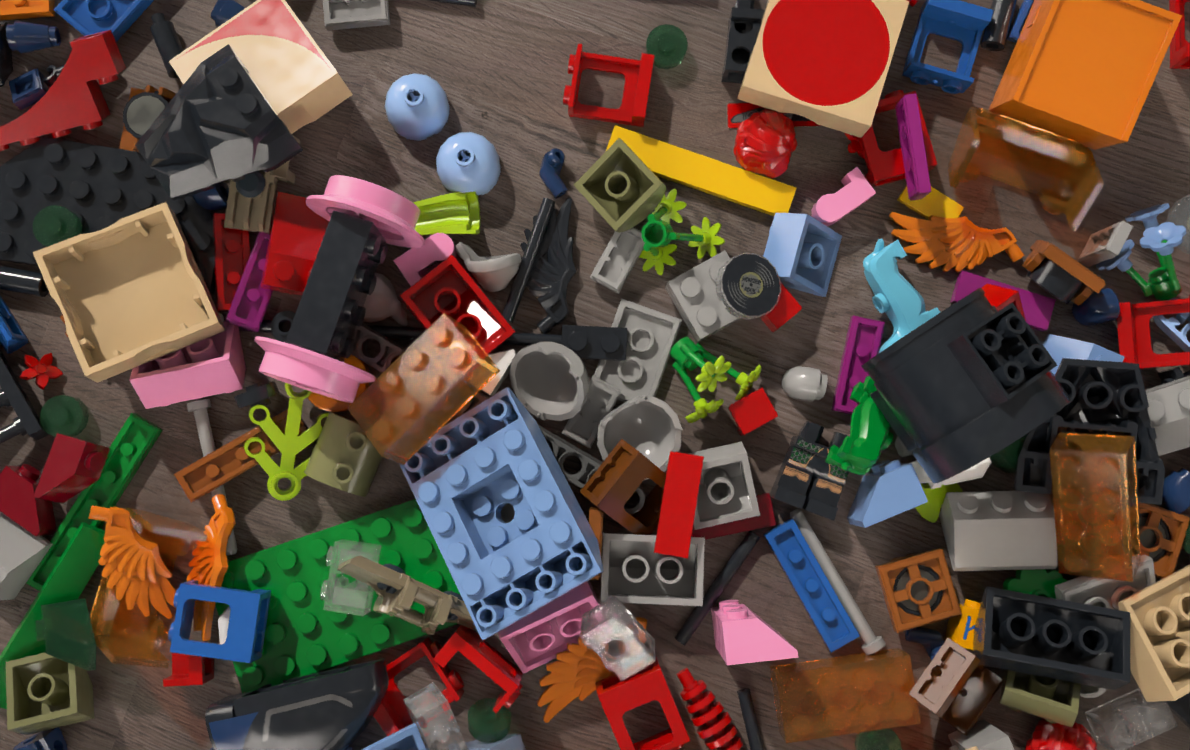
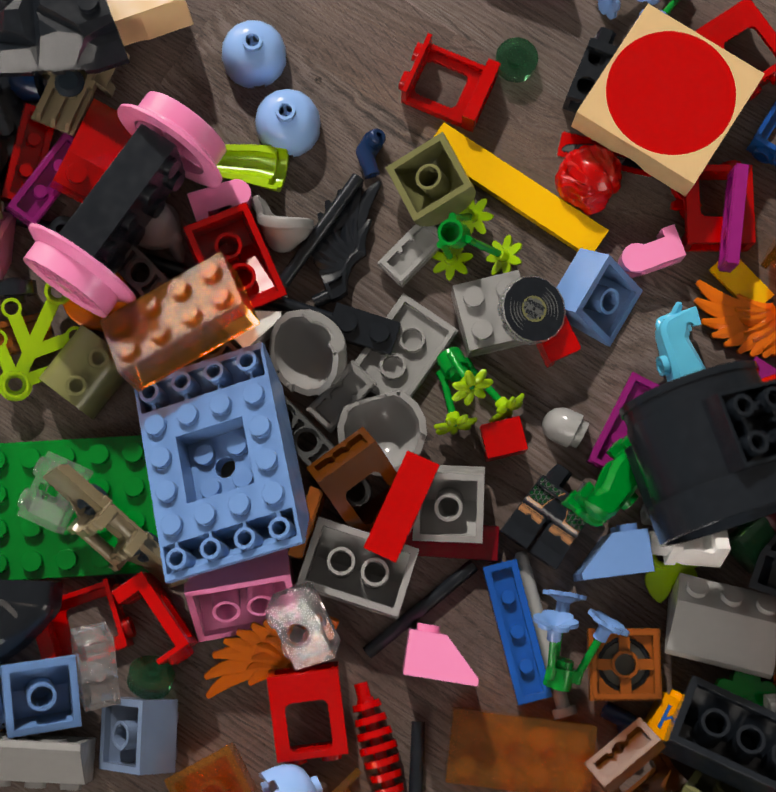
camera: 15 degrees right, 5 degrees down
(852, 573) = (559, 669): none -> plant

